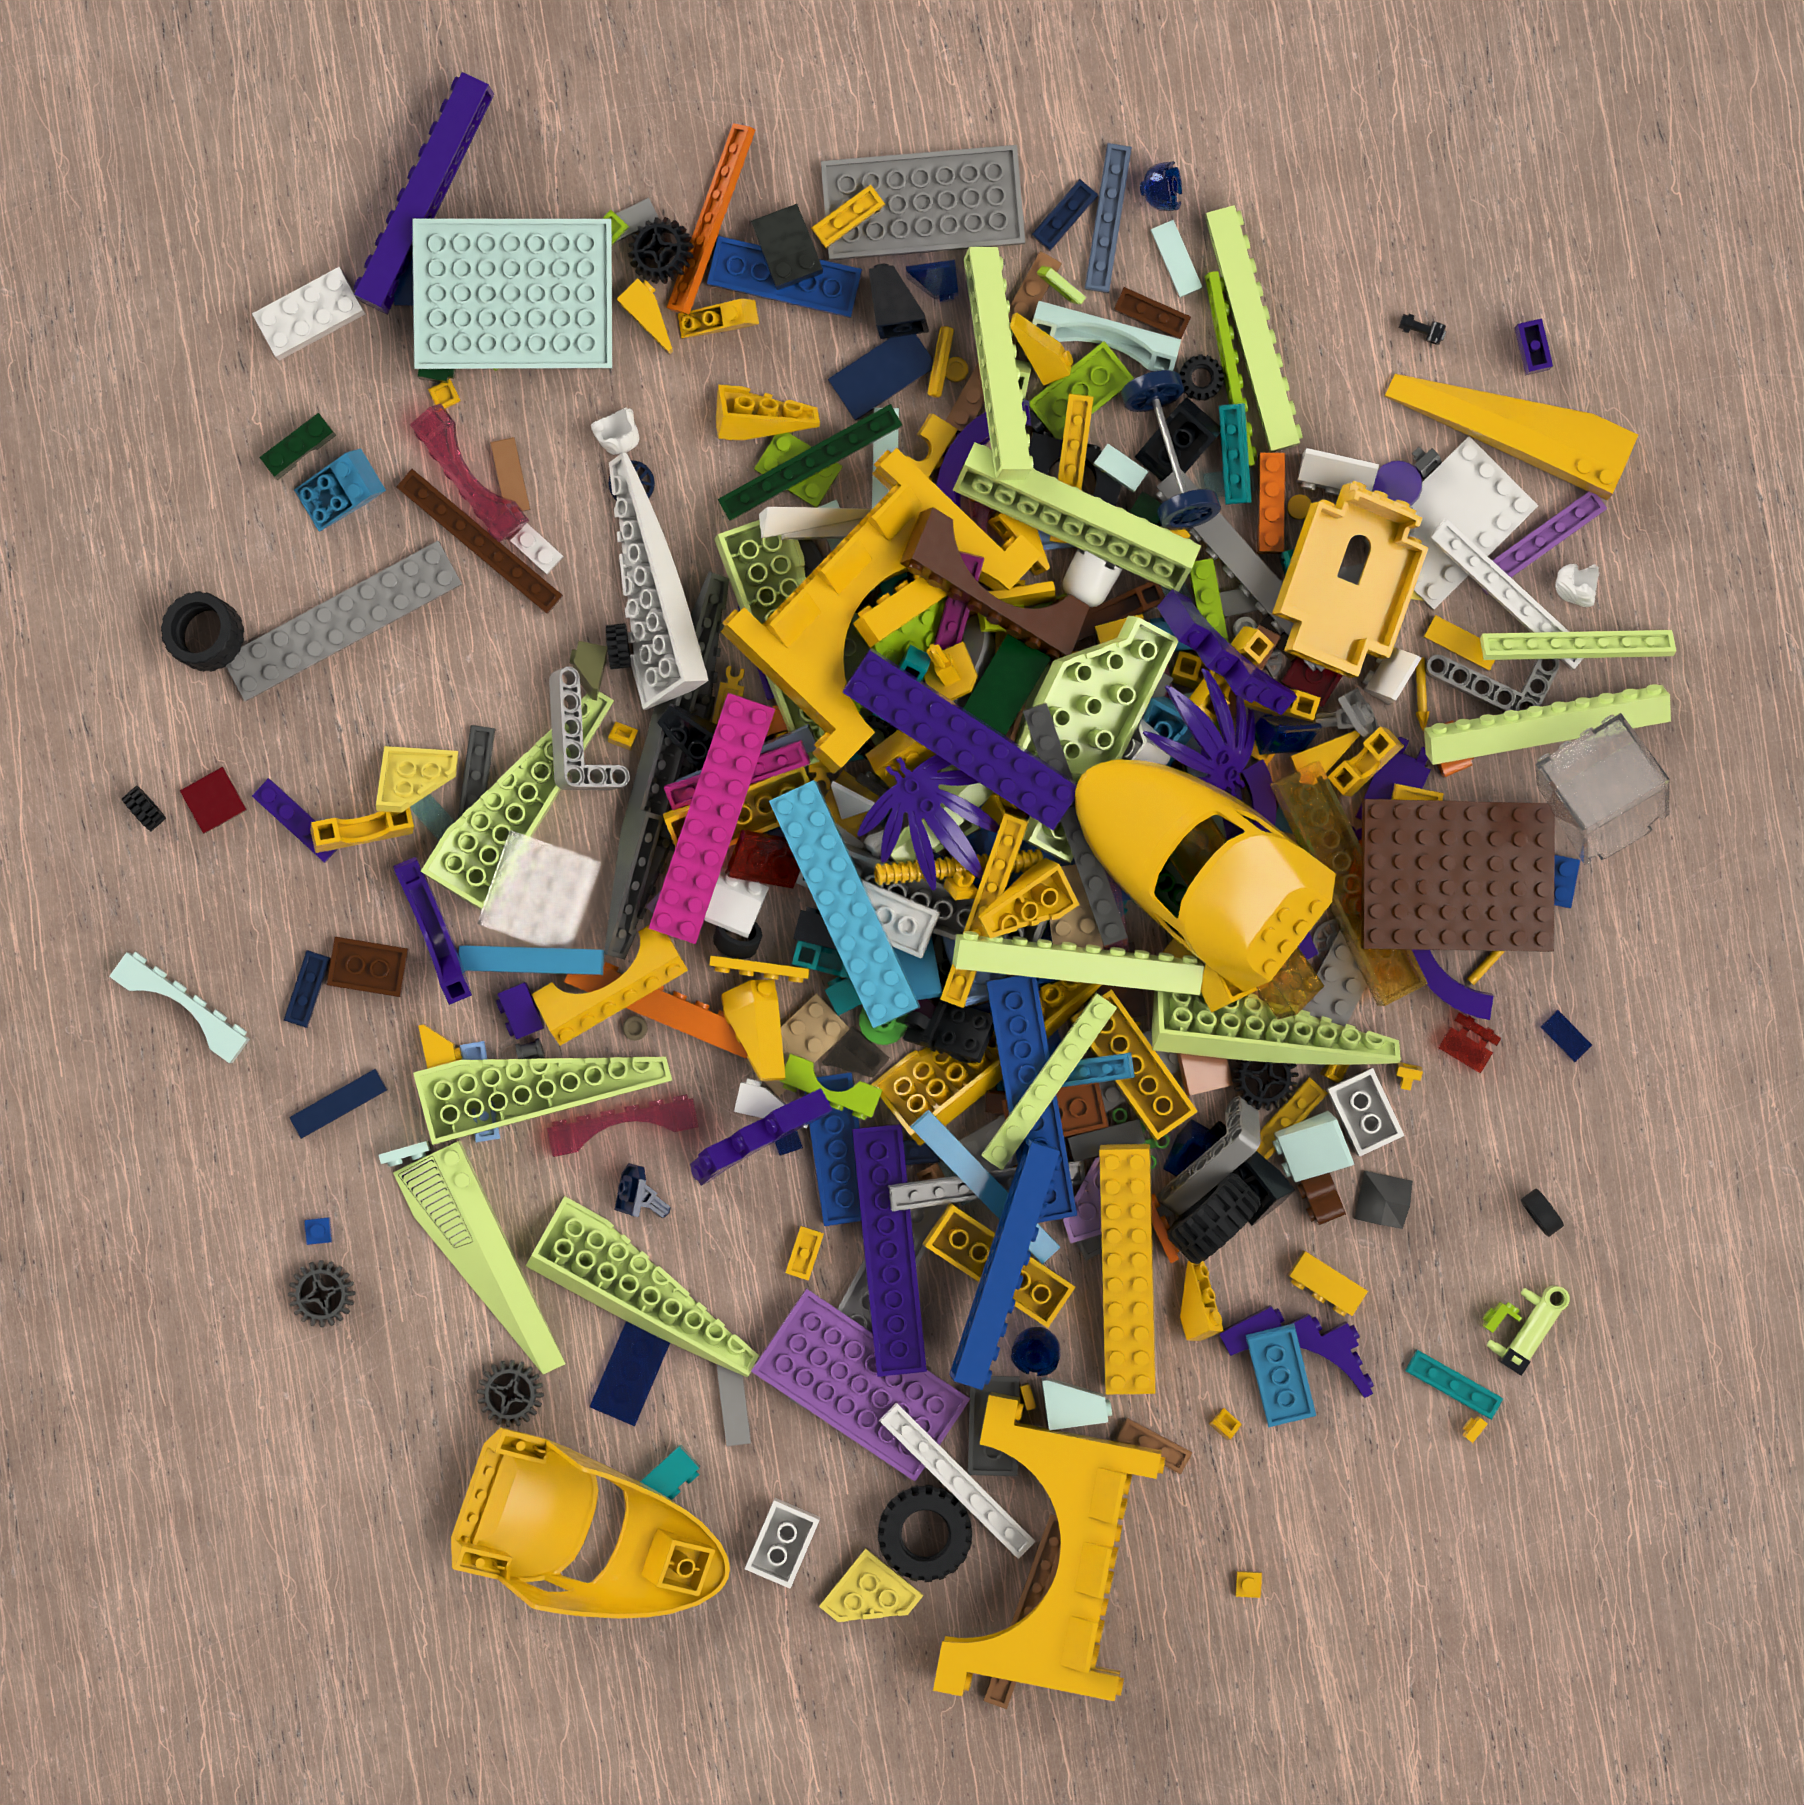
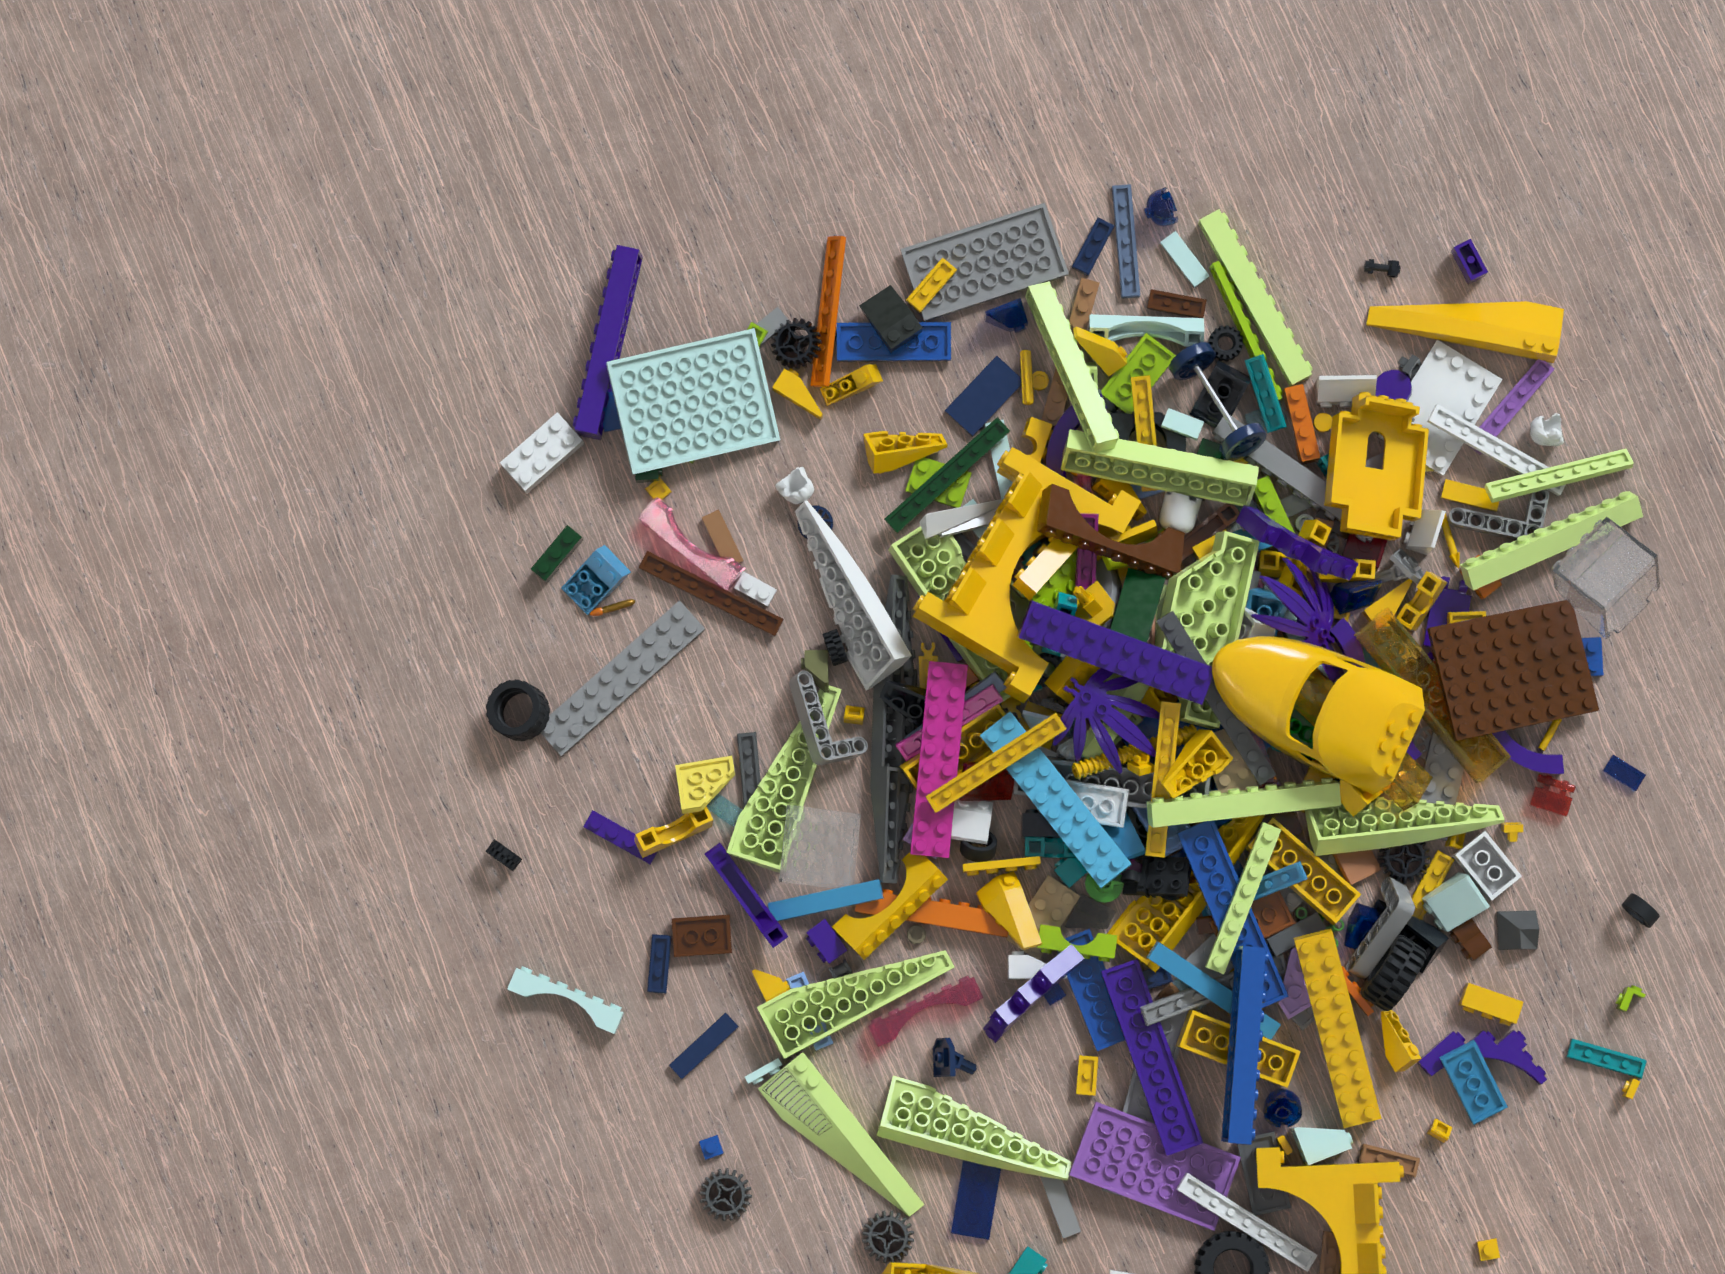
camera: 10 degrees left, 5 degrees down
(213, 800) = (554, 837): dark red tile -> none
(335, 530) = (612, 607): none -> pearl gold piece
(780, 840) = (996, 762): none -> yellow plate
(894, 304) = (983, 342): black slope -> none
(1061, 285) = (1103, 298): lime tile -> none
(1533, 1331) = (1657, 1001): yellowish green piece -> none

